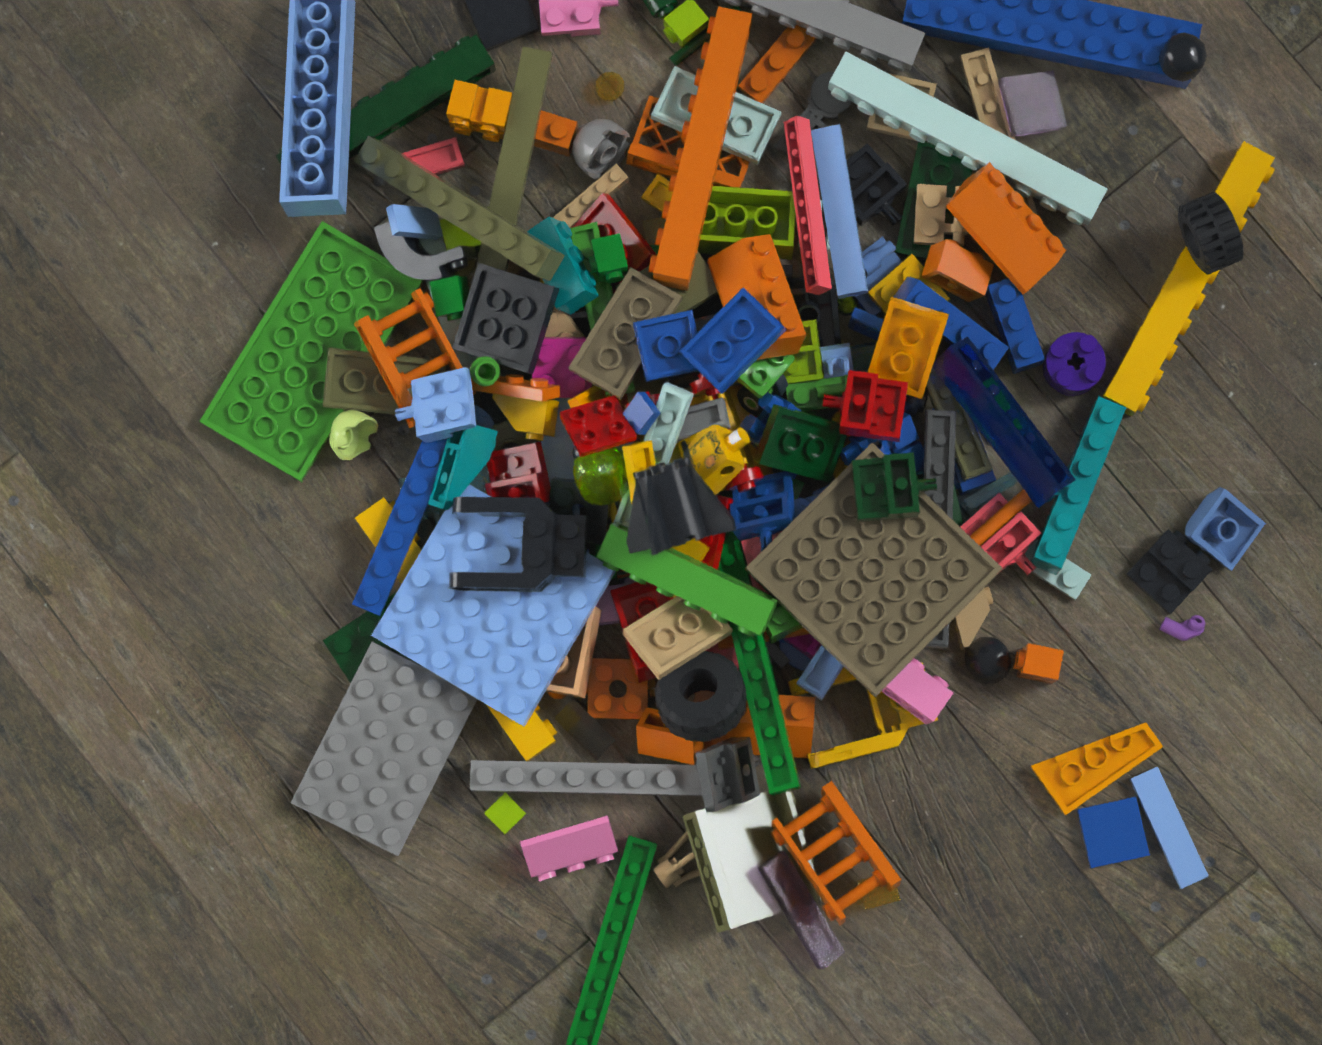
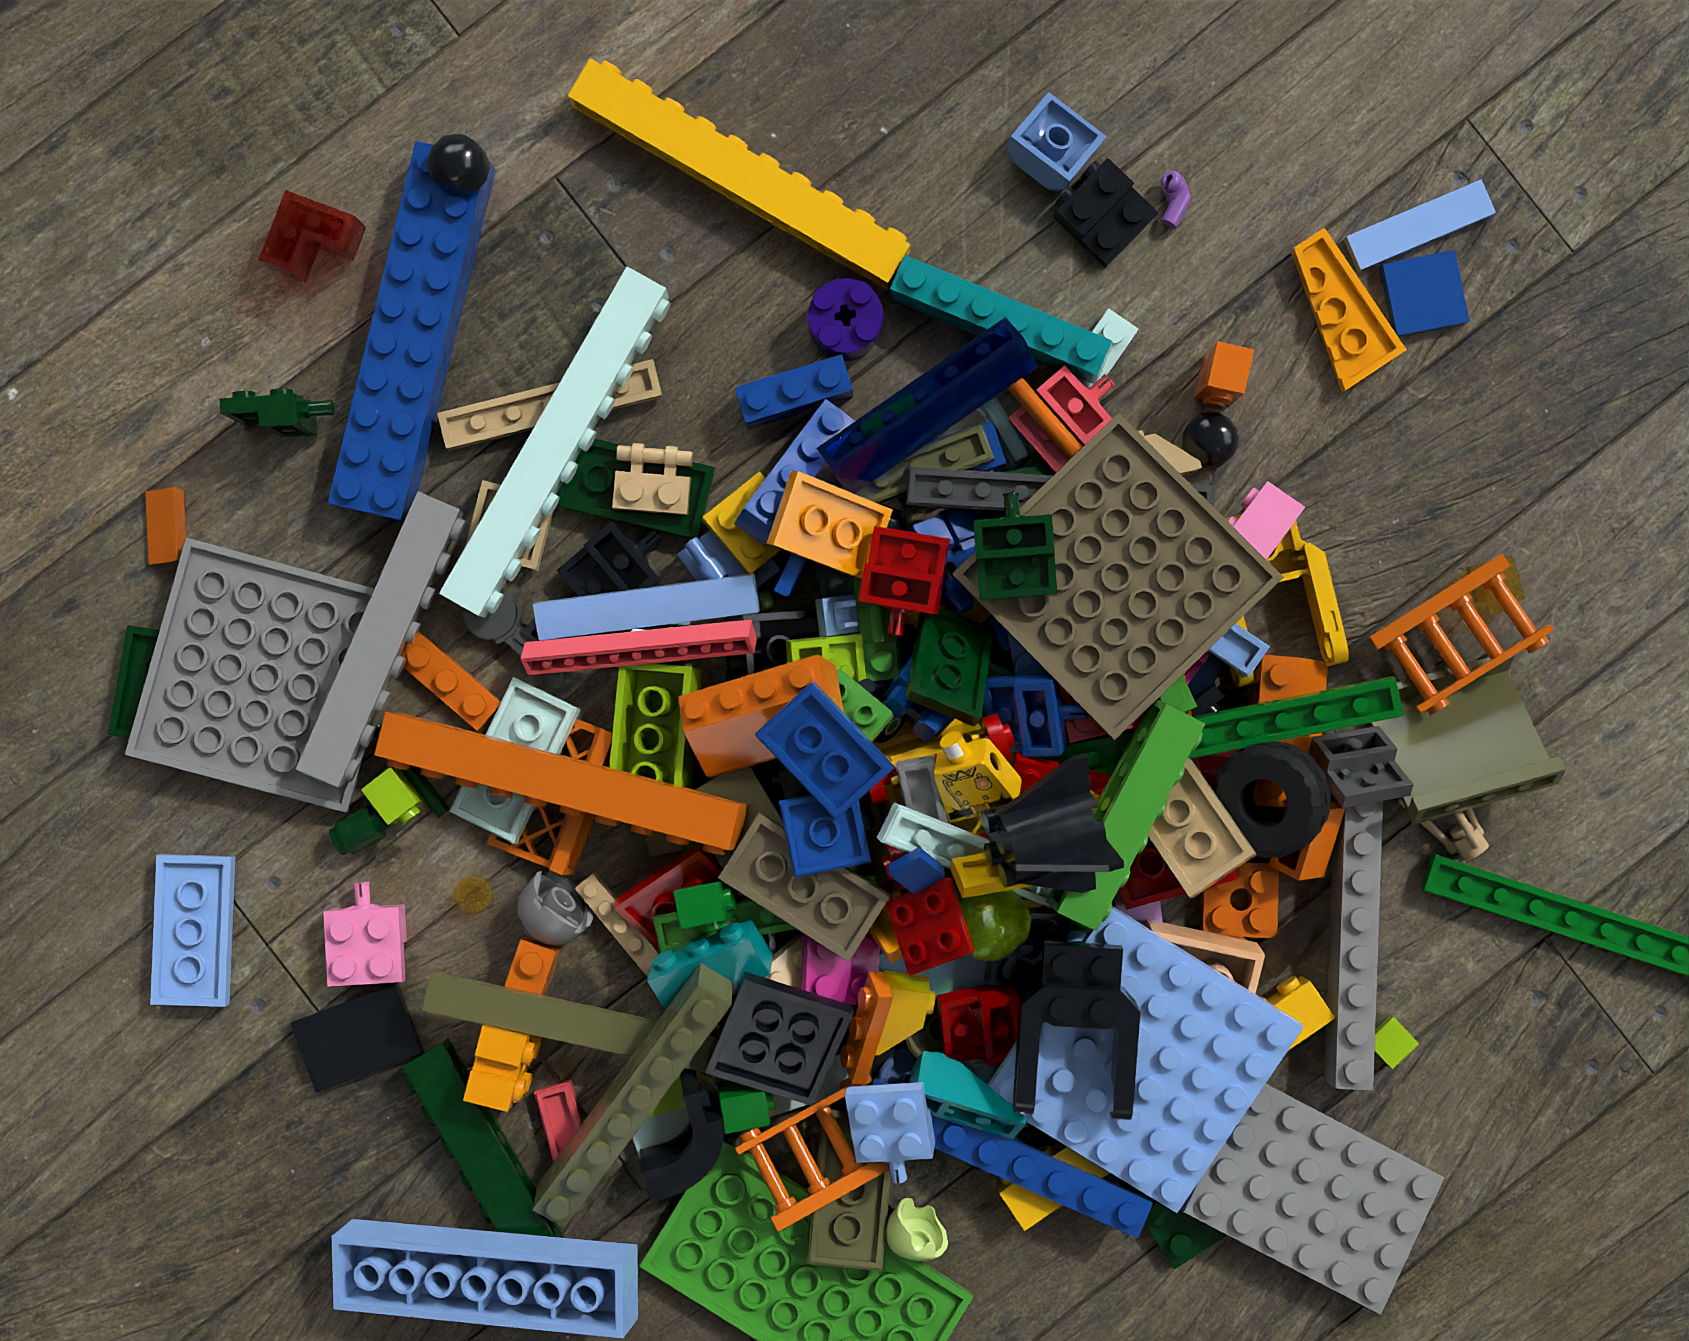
camera: 90 degrees left, 5 degrees up
(414, 222) = (647, 1155): light blue tile -> none
(484, 371) = (848, 1068): bright green plate -> none
(569, 848) = (1439, 965): bright pink slope -> none
(657, 193) = (612, 837): yellow tile -> none
(801, 910) = (1521, 679): plate -> none
(957, 270) = (724, 460): orange brick -> none
(1006, 227) = (673, 397): orange slope -> none
(1032, 103) = (510, 360): clear purple tile -> none
(1210, 233) = (690, 135): black tyre -> none

